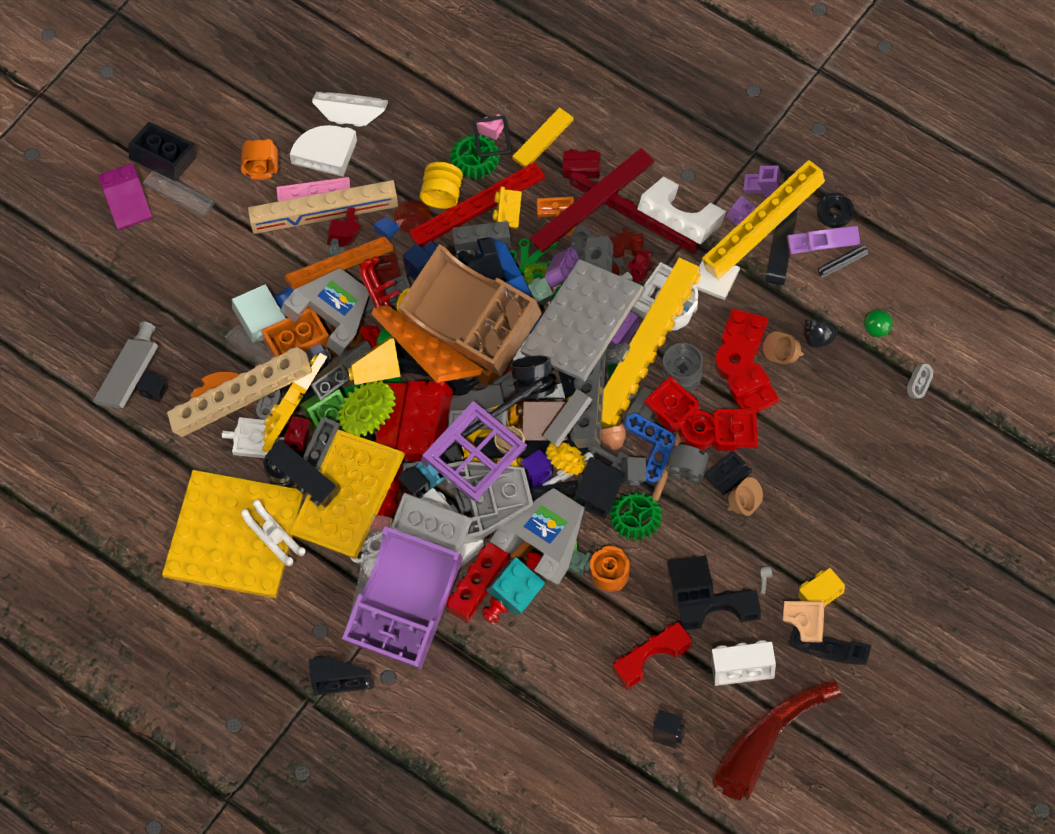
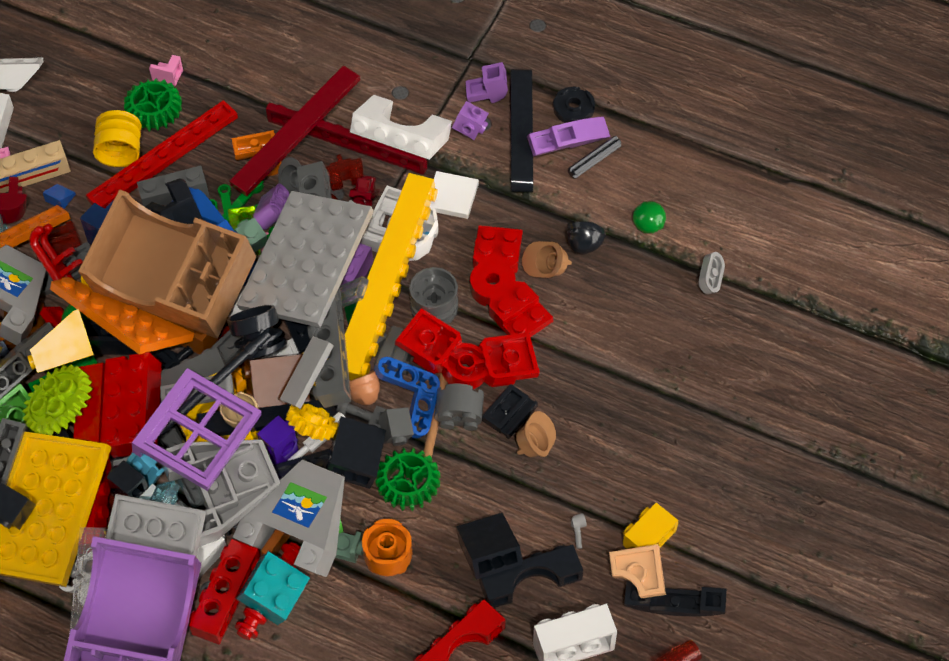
camera: 15 degrees left, 5 degrees down
(410, 221) = (81, 183): clear red dish -> none
(442, 498) = (166, 493): none -> clear light blue bracket
(477, 138) = (191, 89): black piece -> none
(507, 207) = (199, 151): yellow bracket -> none
(543, 138) = (229, 75): yellow tile -> none
(581, 162) = (278, 92): dark red brick -> none
(763, 219) = (496, 122): yellow brick -> none

